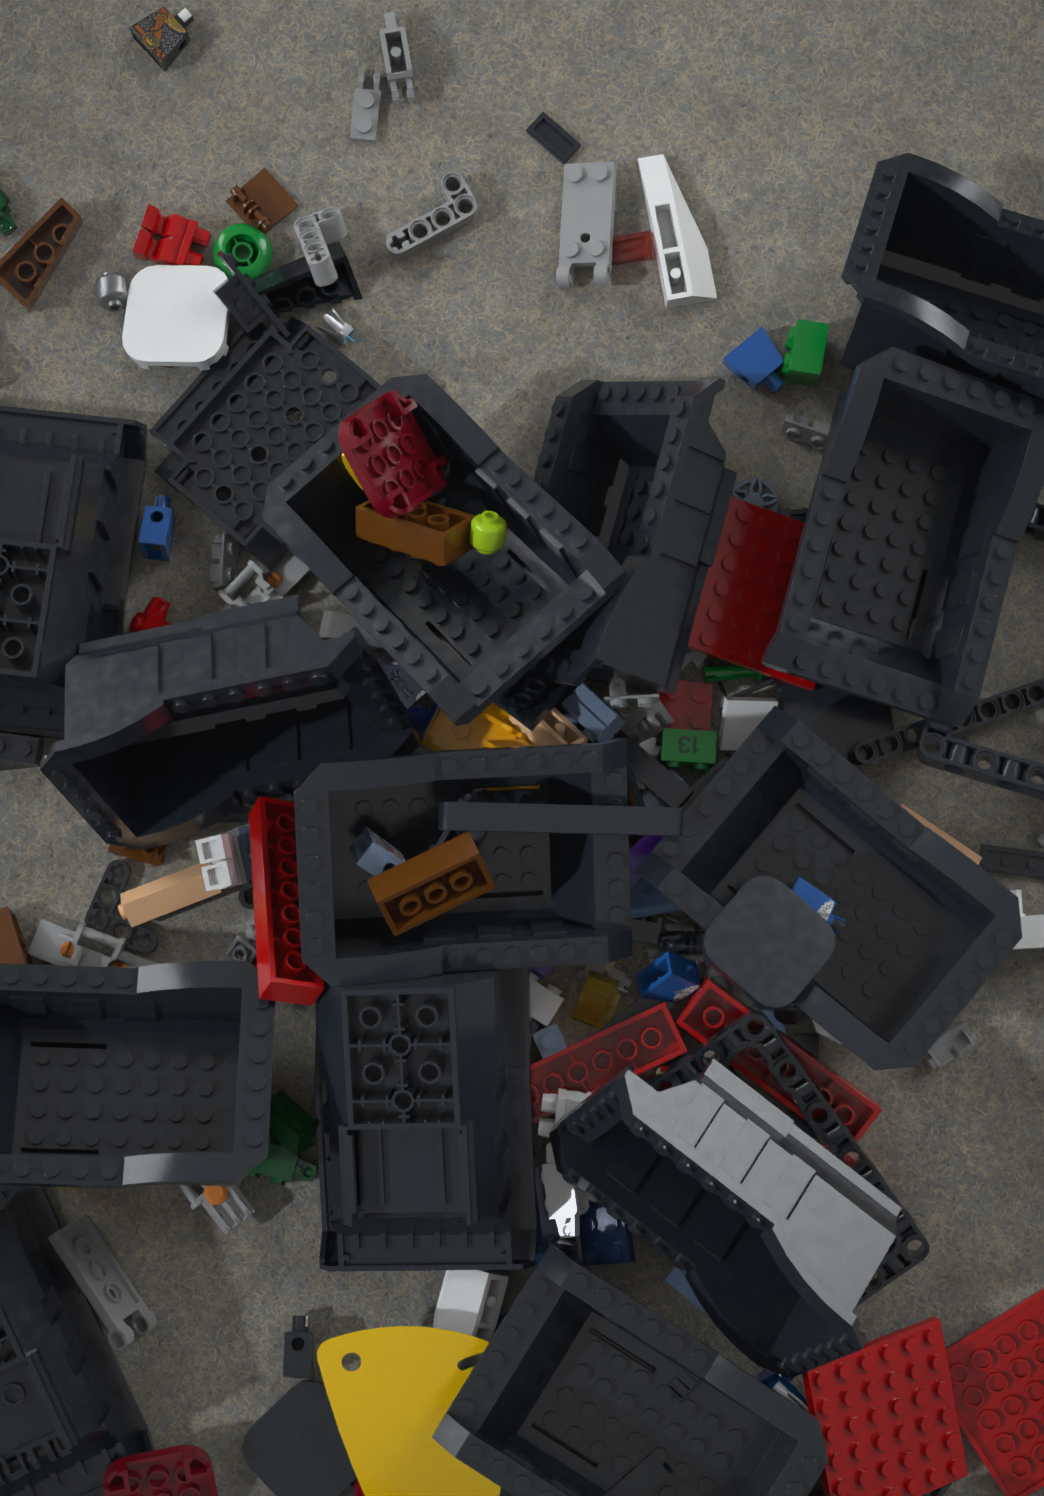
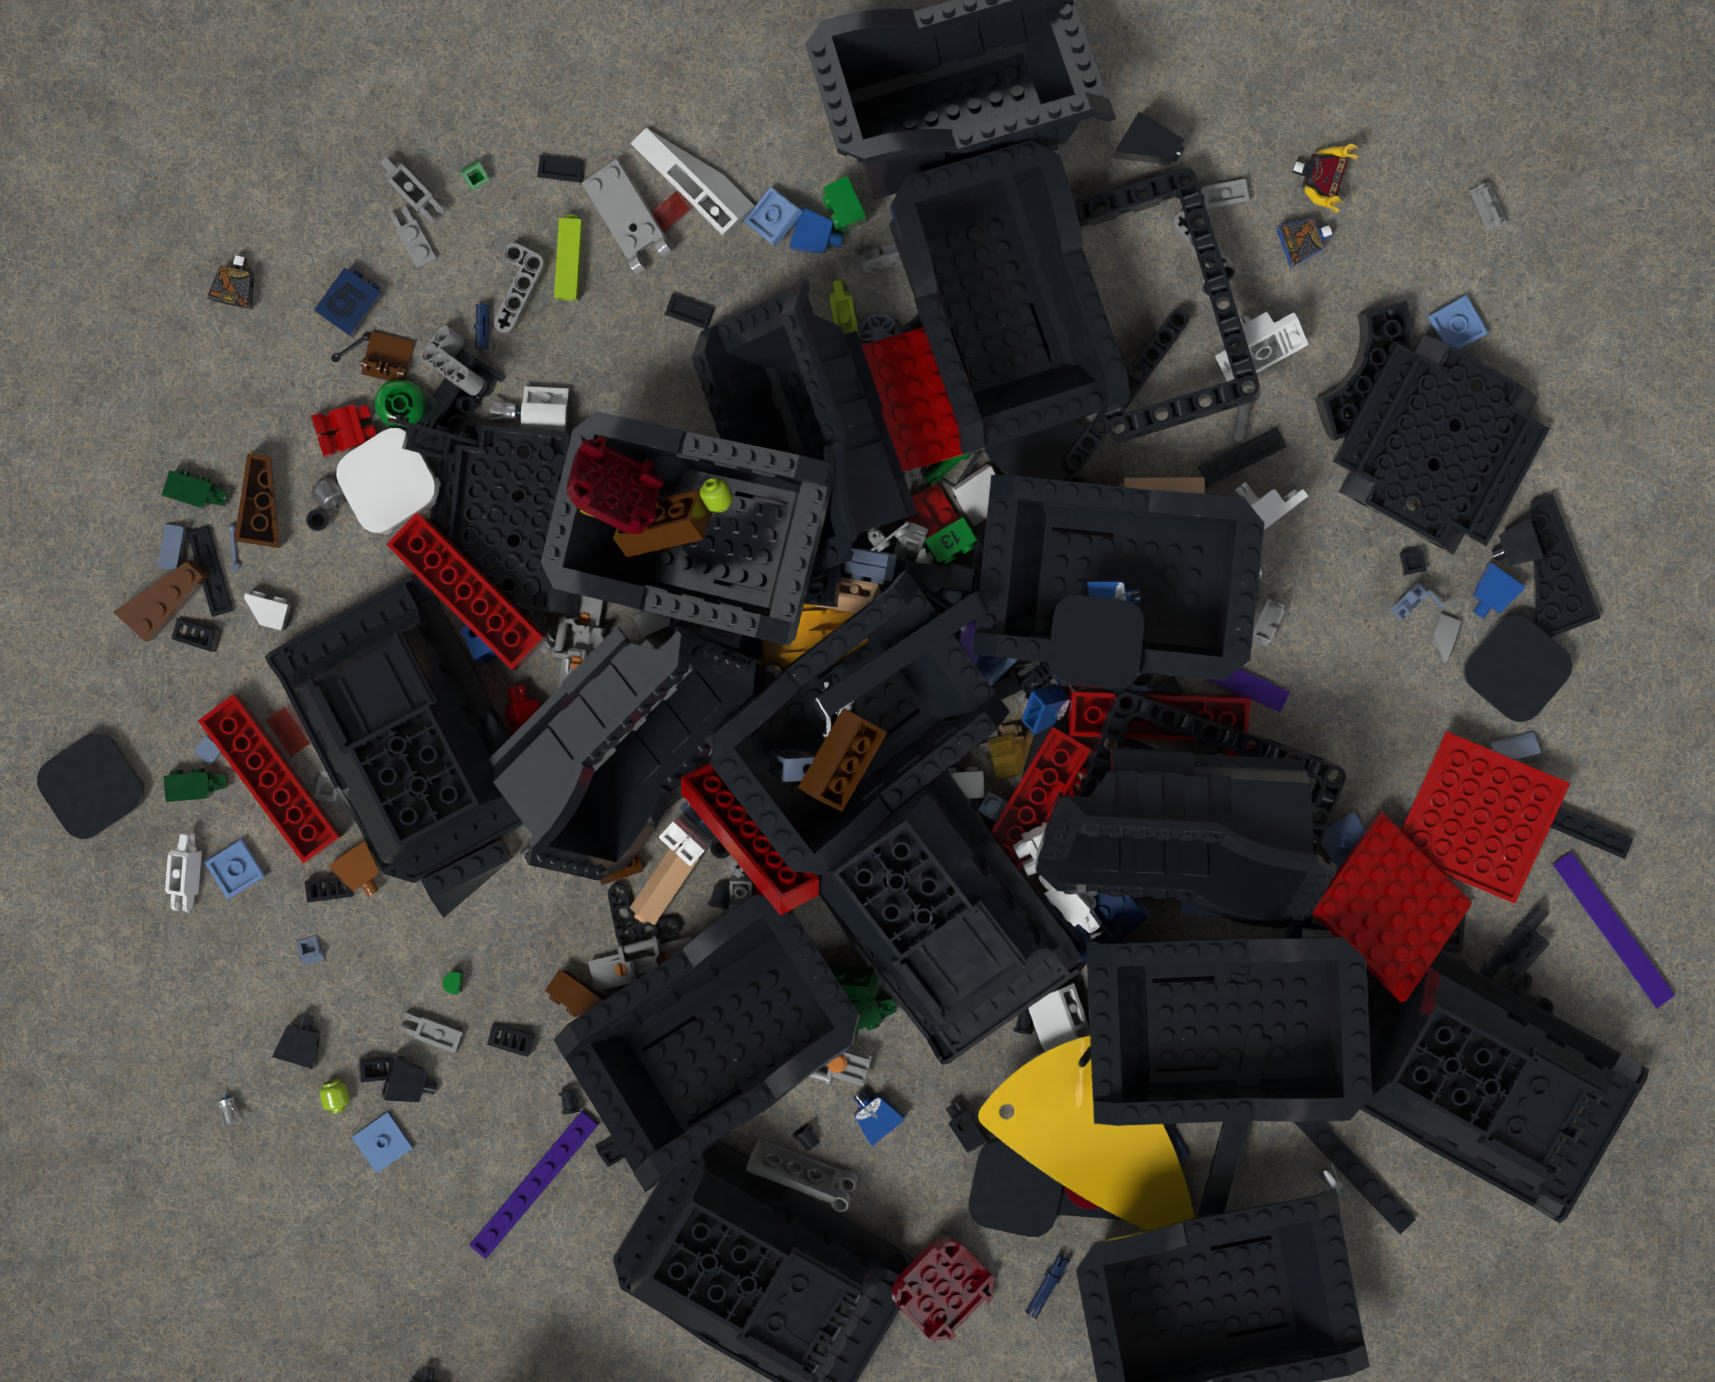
camera: 30 degrees left, 5 degrees up
(81, 301) = (310, 519): none -> black piece
(134, 1246) = (806, 1136): none -> black piece
(177, 470) = (467, 591): none -> red brick
(212, 170) = (336, 357): none -> black hinge
(215, 945) = (719, 898): none -> black piece
(217, 1275) = (876, 1116): none -> blue torso
(262, 122) = (348, 301): none -> dark blue panel
(373, 234) = (482, 326): none -> dark blue pin
(378, 351) = (545, 409): none -> white brick
(431, 1283) = (1024, 1023): none -> black bush
(467, 87) = (475, 175): none -> green brick
(502, 226) = (568, 258): none -> lime brick
(583, 355) = (689, 311): none -> black tile
(728, 319) = (773, 216): none -> medium blue plate
(738, 448) = (843, 308): none -> lime hinge
(882, 1315) = (1342, 838): none -> medium blue plate
(887, 1094) = (1255, 689): none -> dark purple tile

